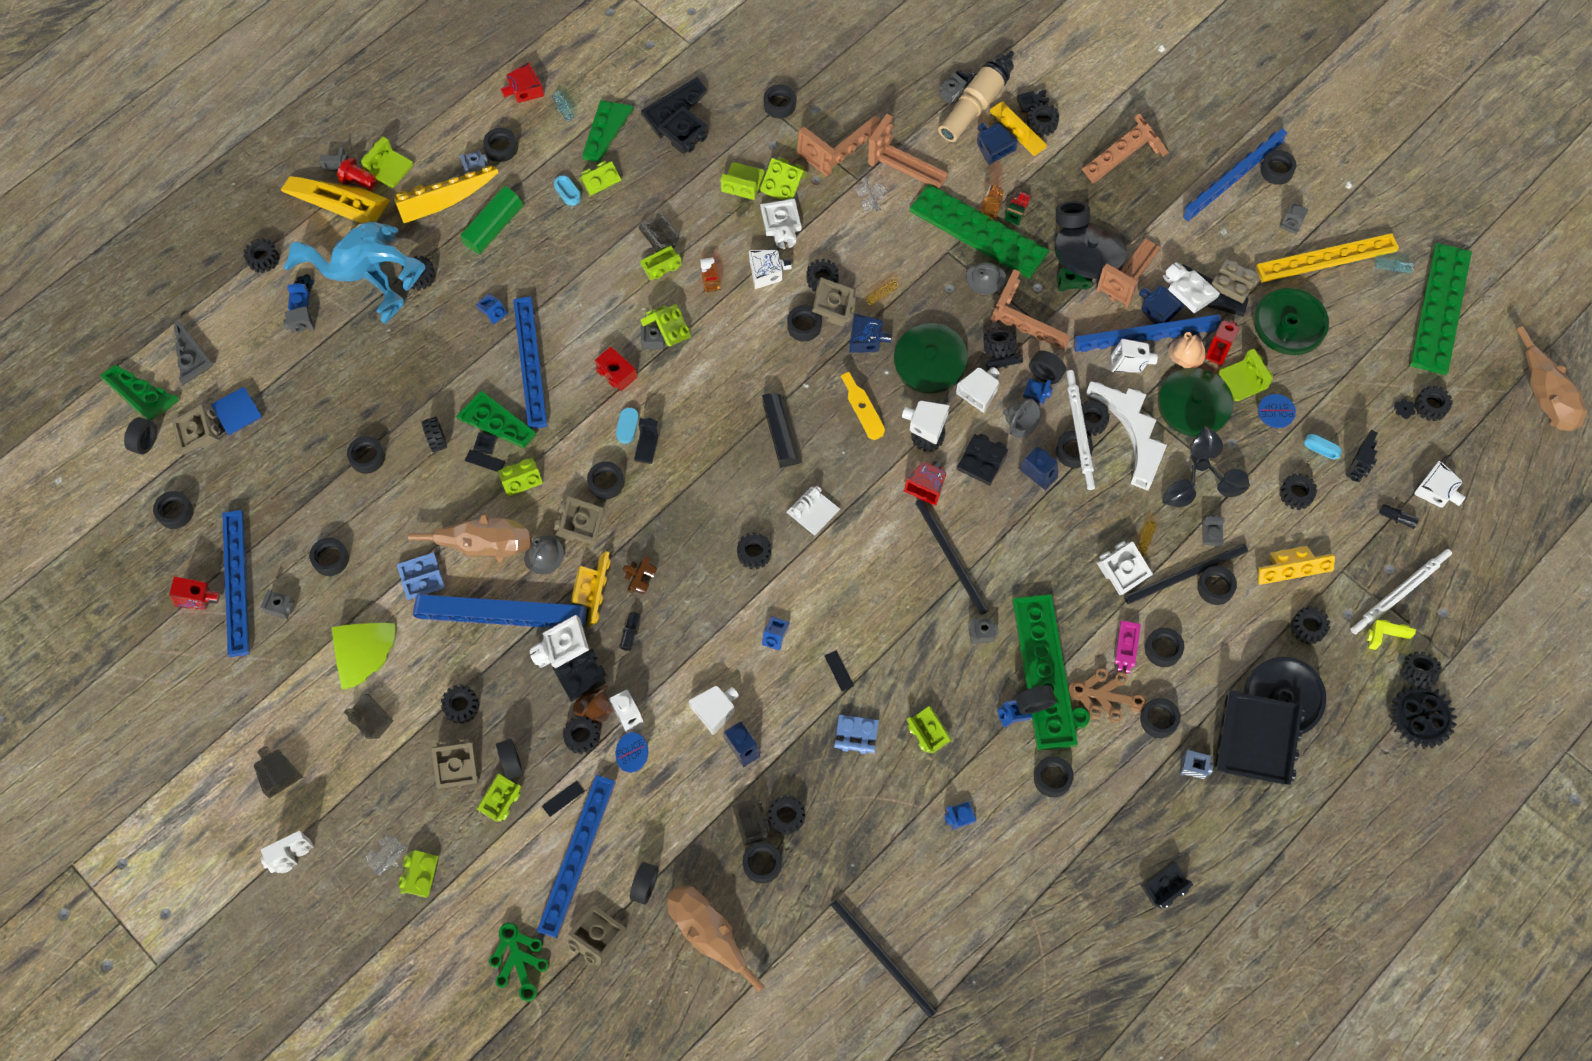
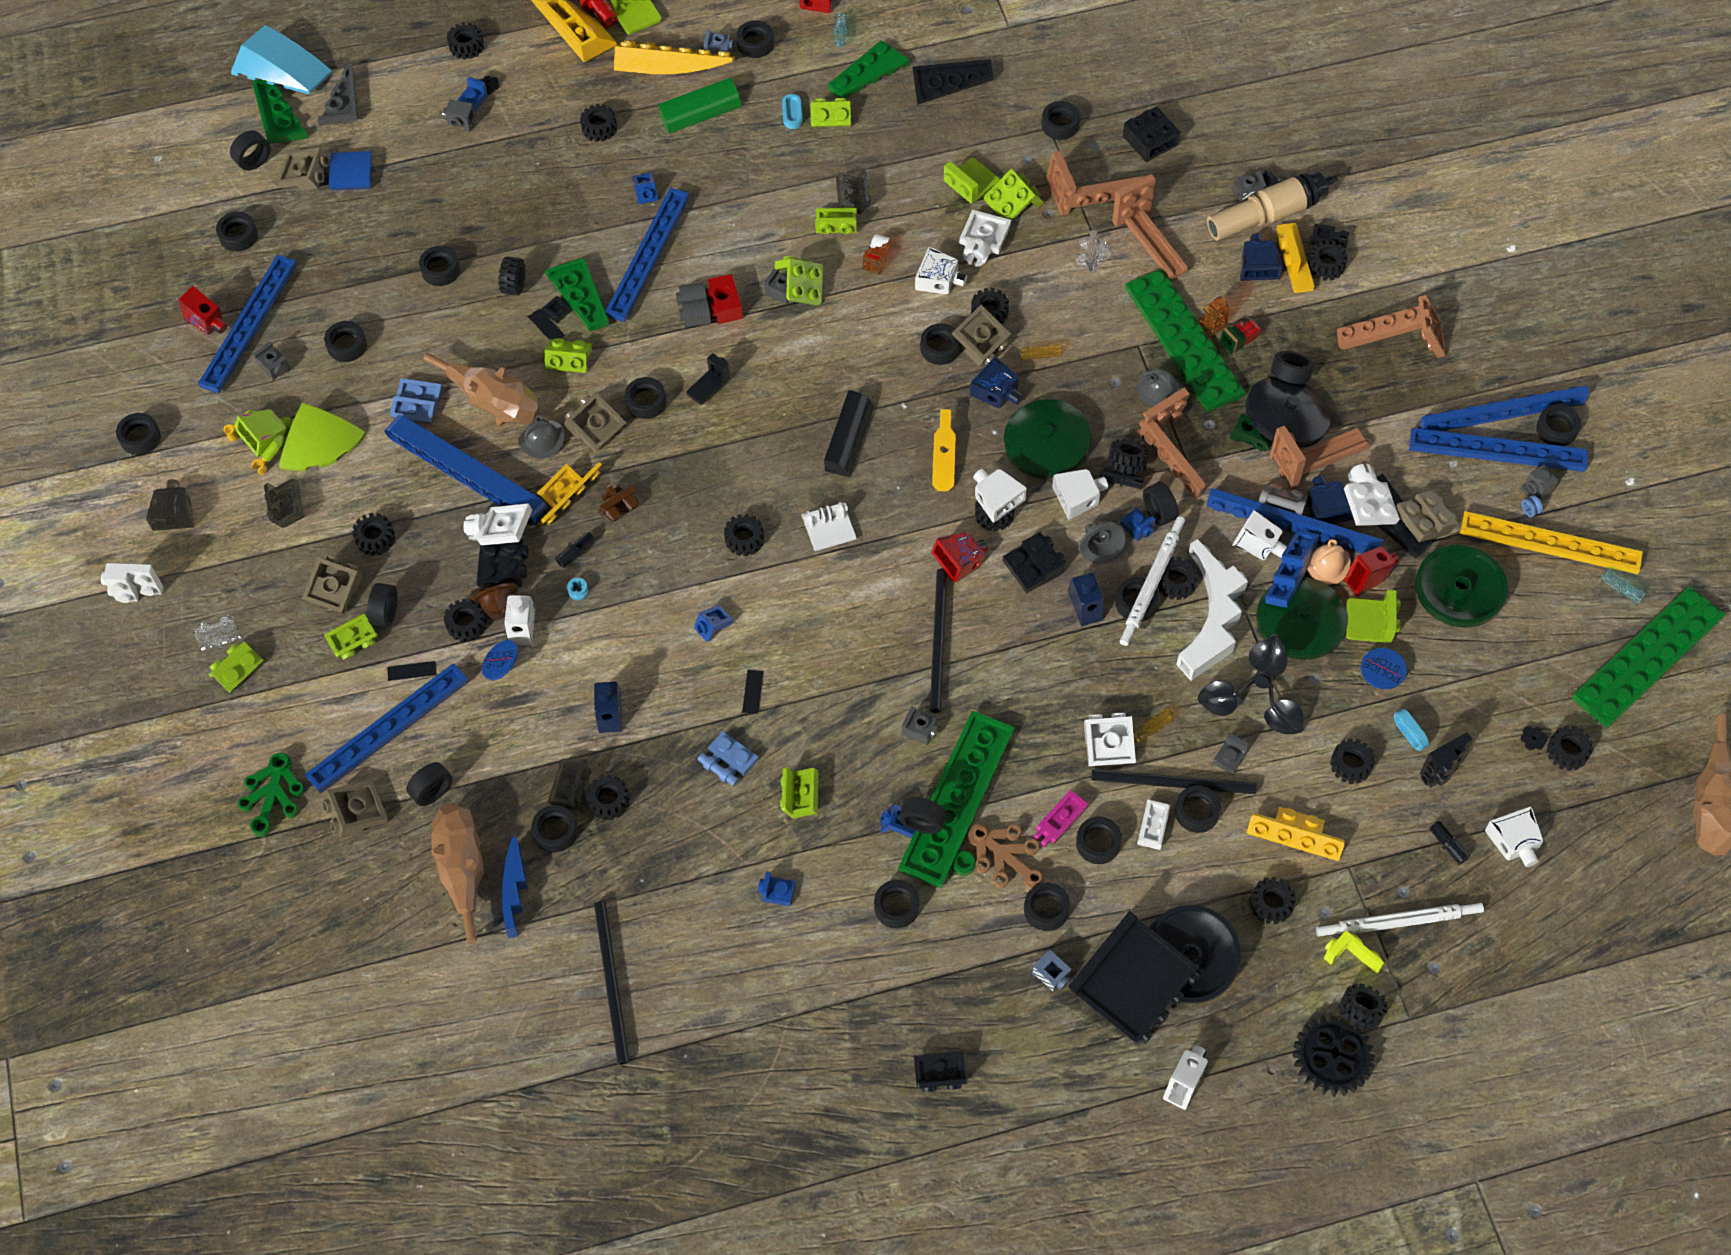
camera: 30 degrees right, 5 degrees down
(115, 347) = (279, 60): none -> medium azure wedge
(193, 714) = (136, 420): none -> black tyre
(312, 669) = (262, 433): none -> lime torso
(361, 257) = (551, 80): dark azure animal -> none
(594, 385) = (694, 304): none -> dark grey brick
(627, 425) = (696, 361): medium azure tile -> none
(658, 659) = (577, 582): none -> medium azure bush
(684, 130) = (943, 104): black plate -> none
(714, 707) = (606, 660): white torso -> none
(759, 919) = (513, 881): none -> blue slope
(854, 80) = (1151, 134): none -> black brick
(1127, 318) = (1291, 499): none -> light grey plate
(1169, 368) = (1292, 569): none -> blue slope
(1194, 613) = (1153, 824): none -> white plate
(1249, 206) = (1498, 449): none -> blue plate
(1298, 237) = (1532, 506): none -> medium blue bush
(1338, 790) = (1186, 1077): none -> white torso

